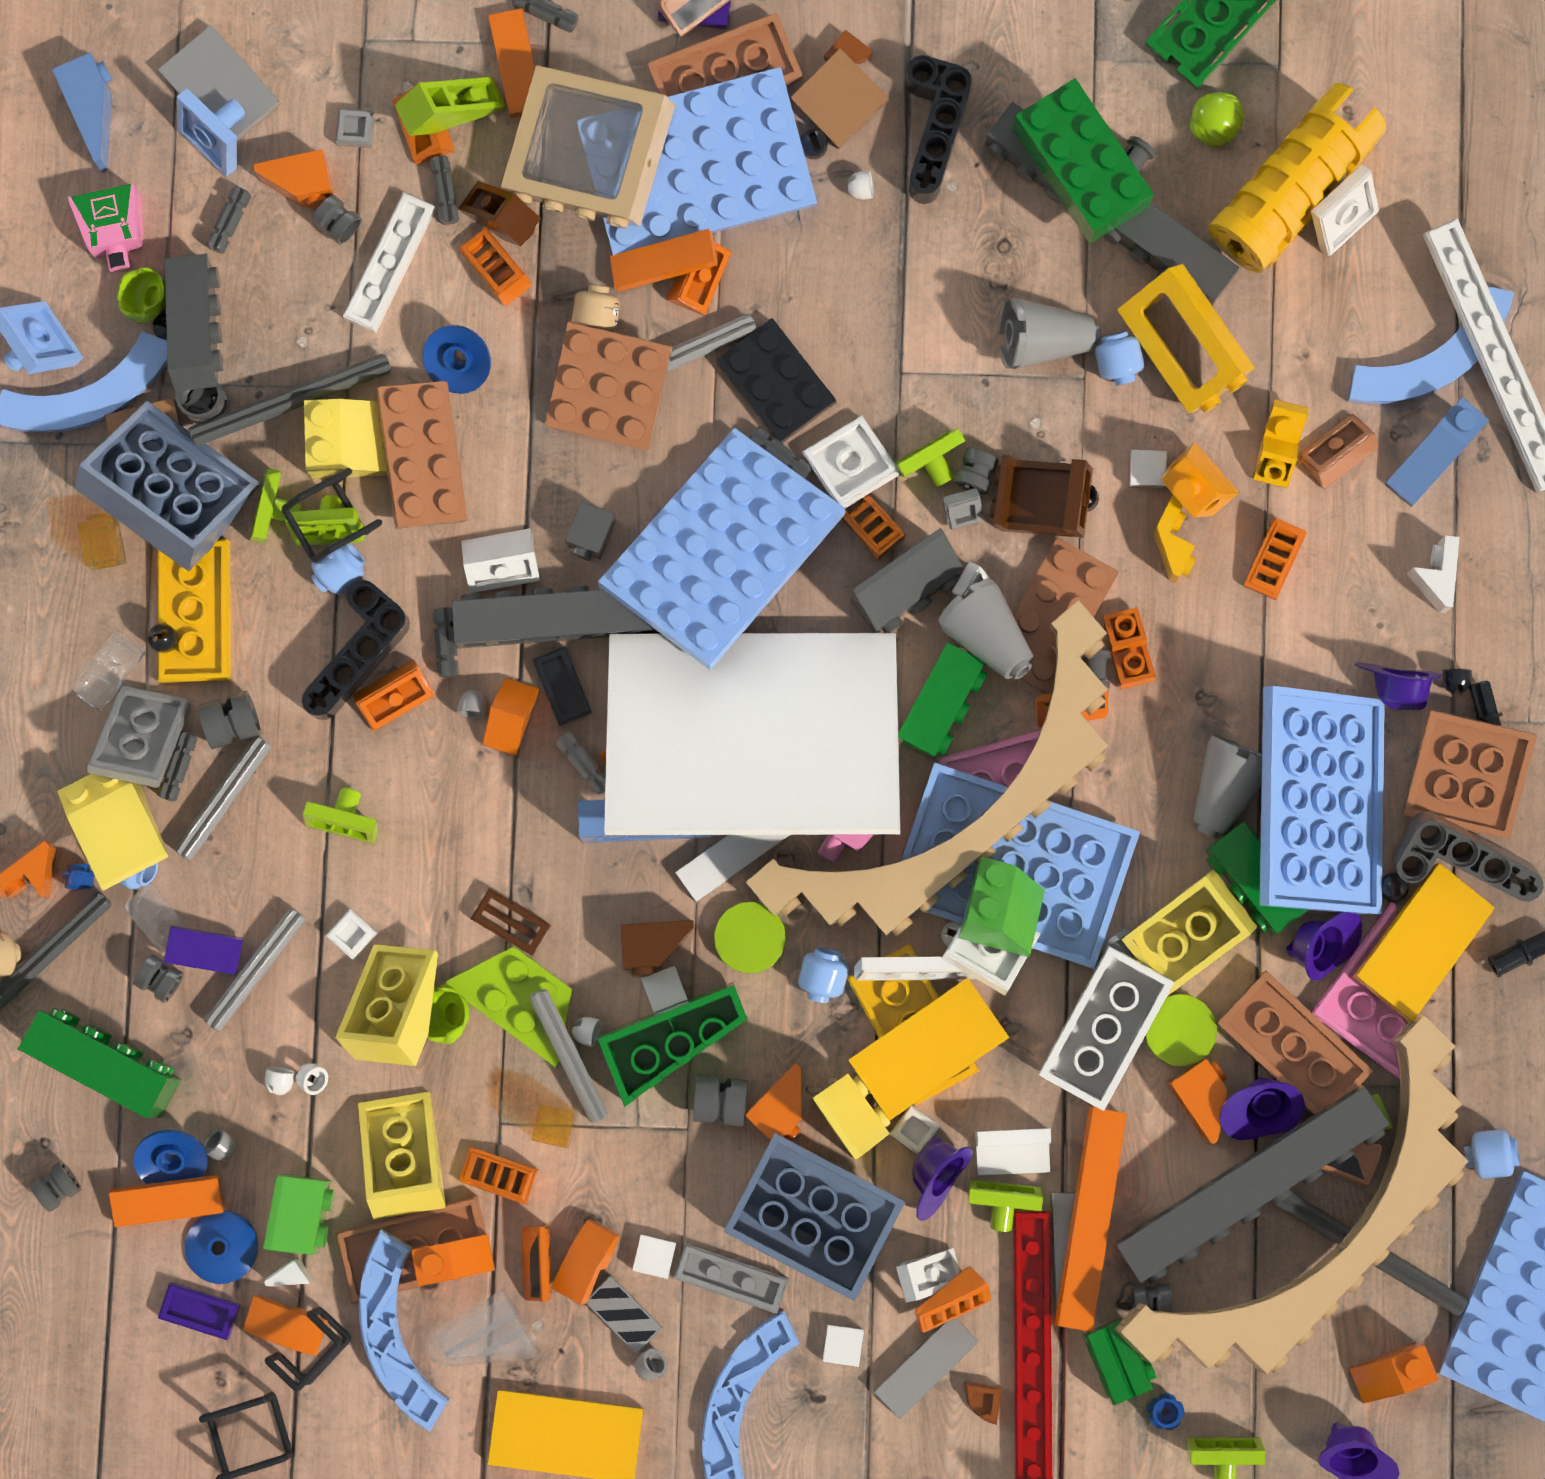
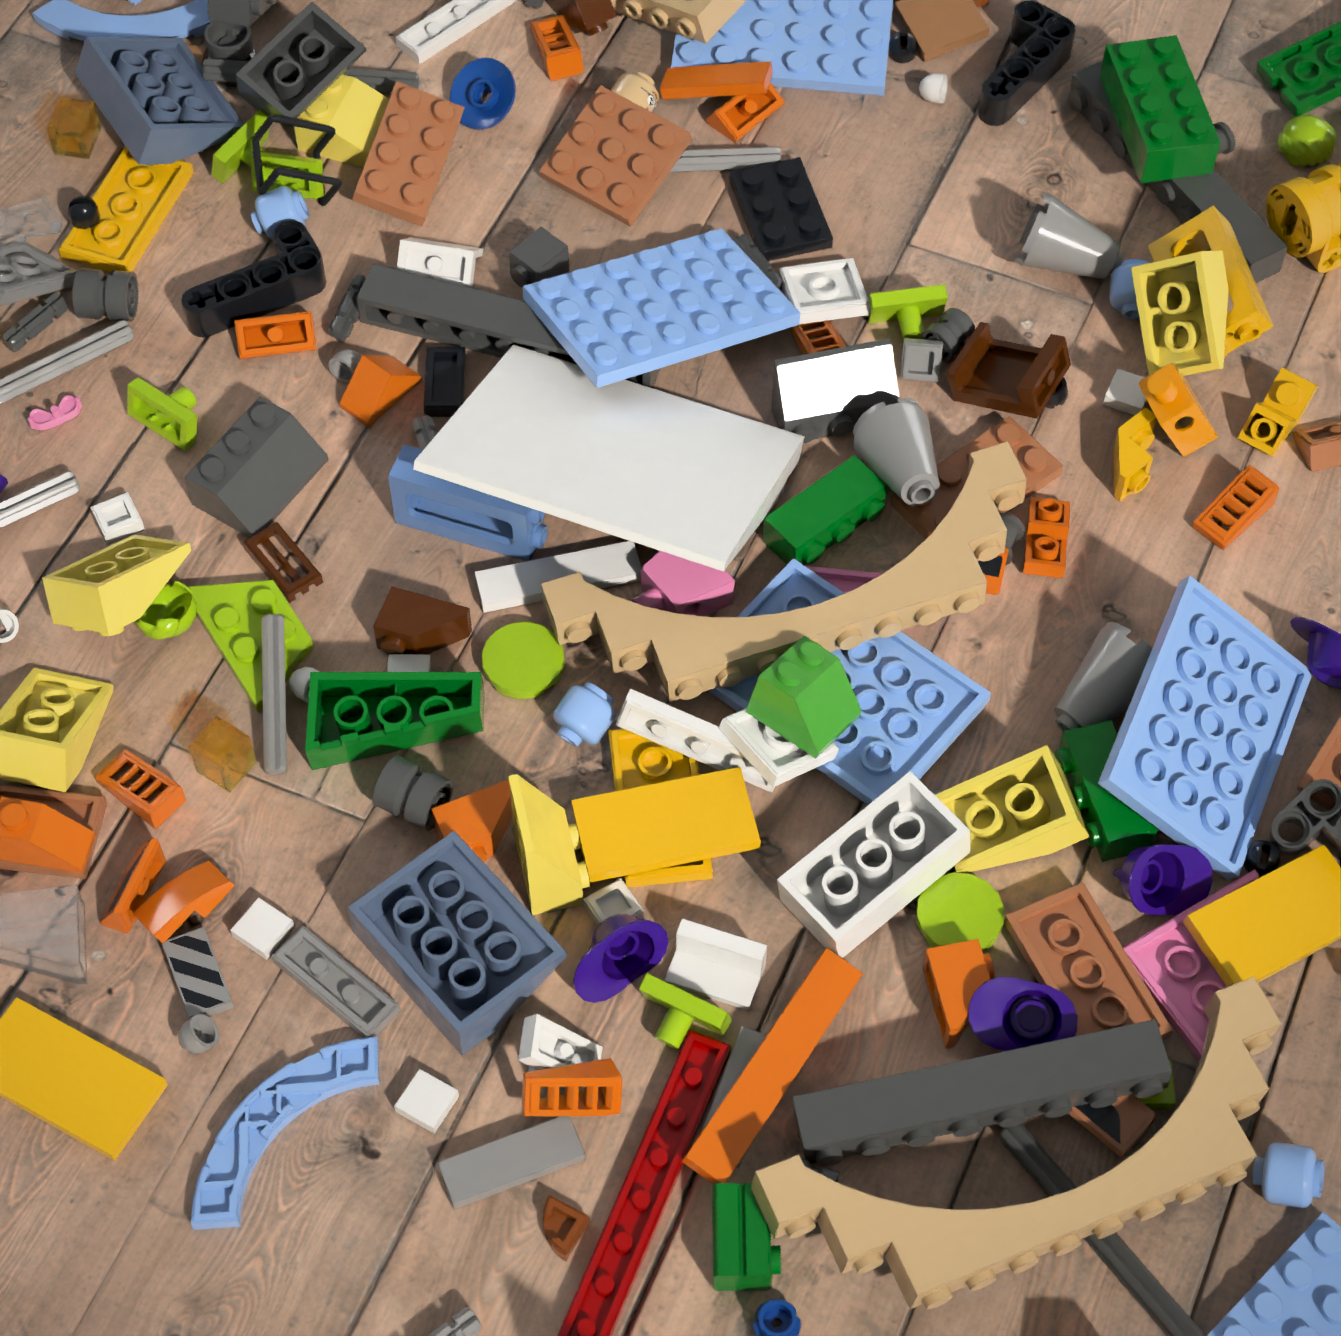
camera: 20 degrees right, 25 degrees down
(237, 861) = (67, 410): none -> bright pink piece
(291, 418) = (298, 64): none -> dark grey slope
(449, 846) = (255, 469): none -> dark grey slope
(1175, 387) = (1183, 311): none -> light yellow slope

